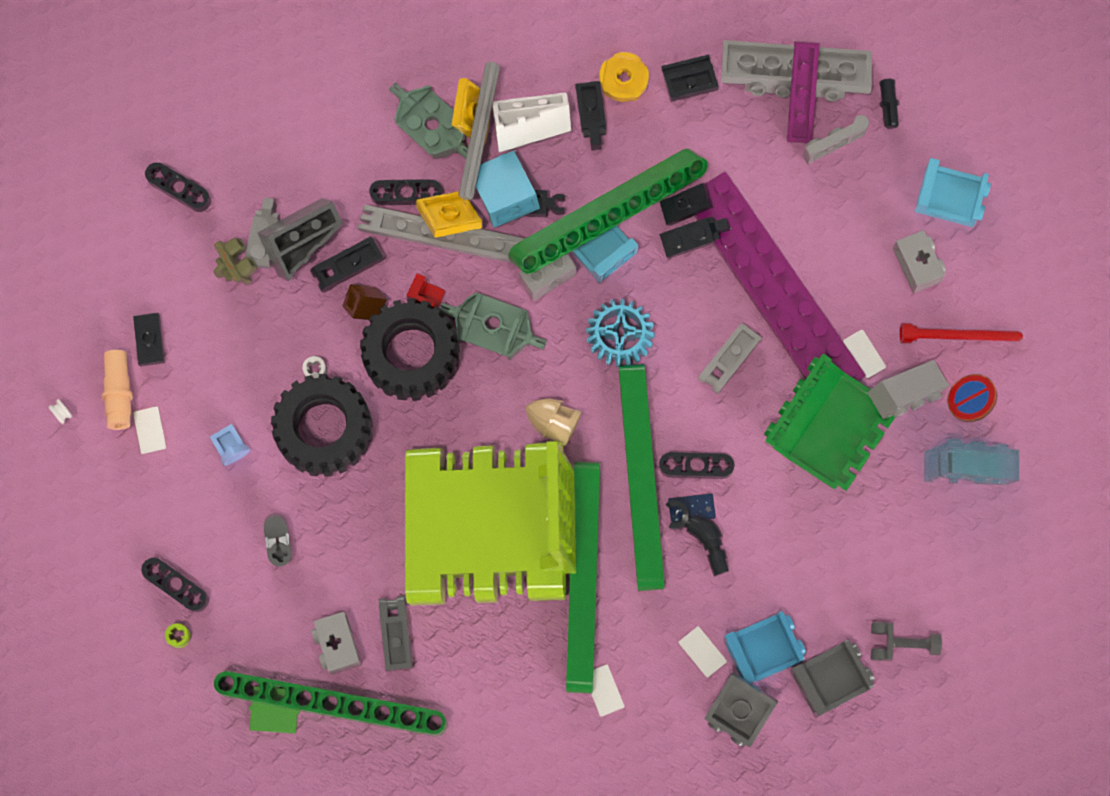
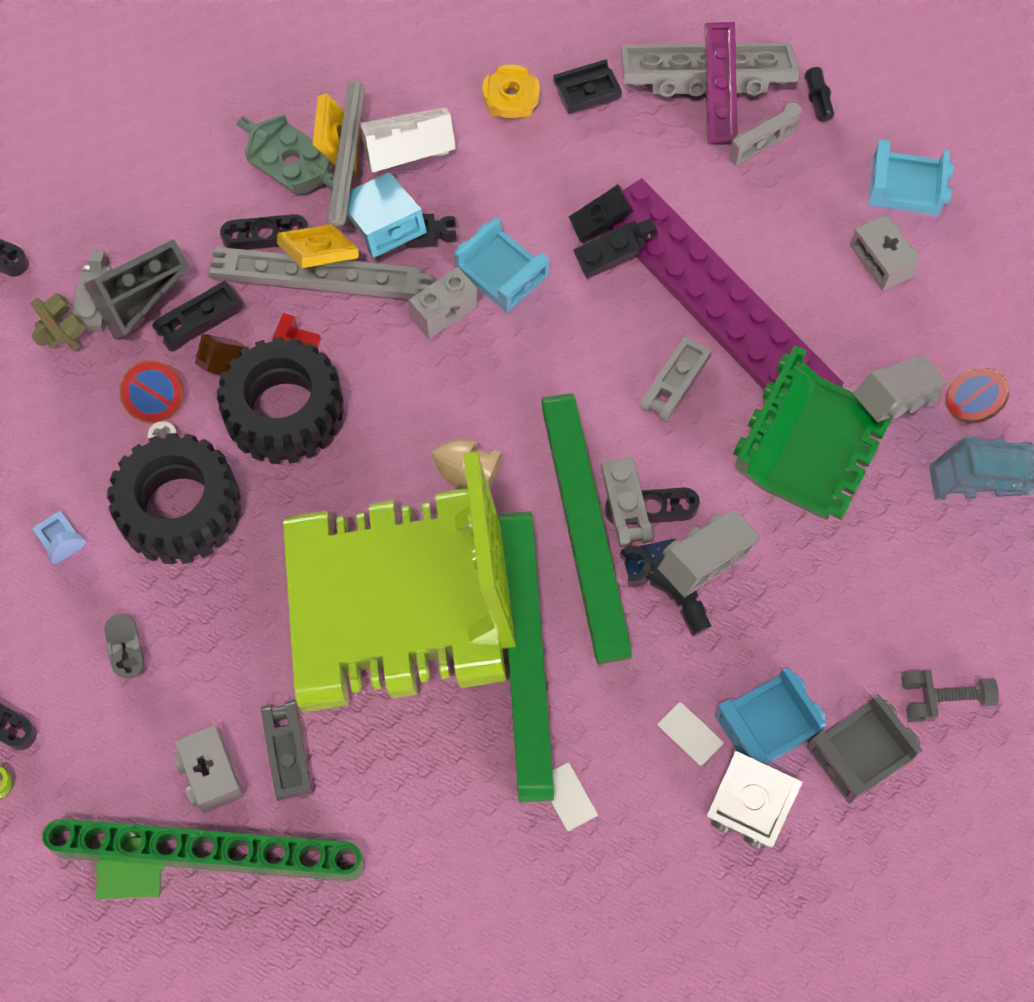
camera: 10 degrees left, 10 degrees down
(307, 330) = (151, 391): none -> piece
(507, 339) = (403, 378): sand green plate -> none
(591, 112) = (477, 130): black hinge -> none
(607, 211) = (506, 225): green beam -> none
(629, 333) = (516, 362): medium azure gear -> none
(675, 461) = (626, 501): none -> light grey plate
(734, 511) = (708, 552): none -> light grey brick
(864, 353) = (838, 360): white sticker -> none
(911, 333) = (887, 331): red piece -> none

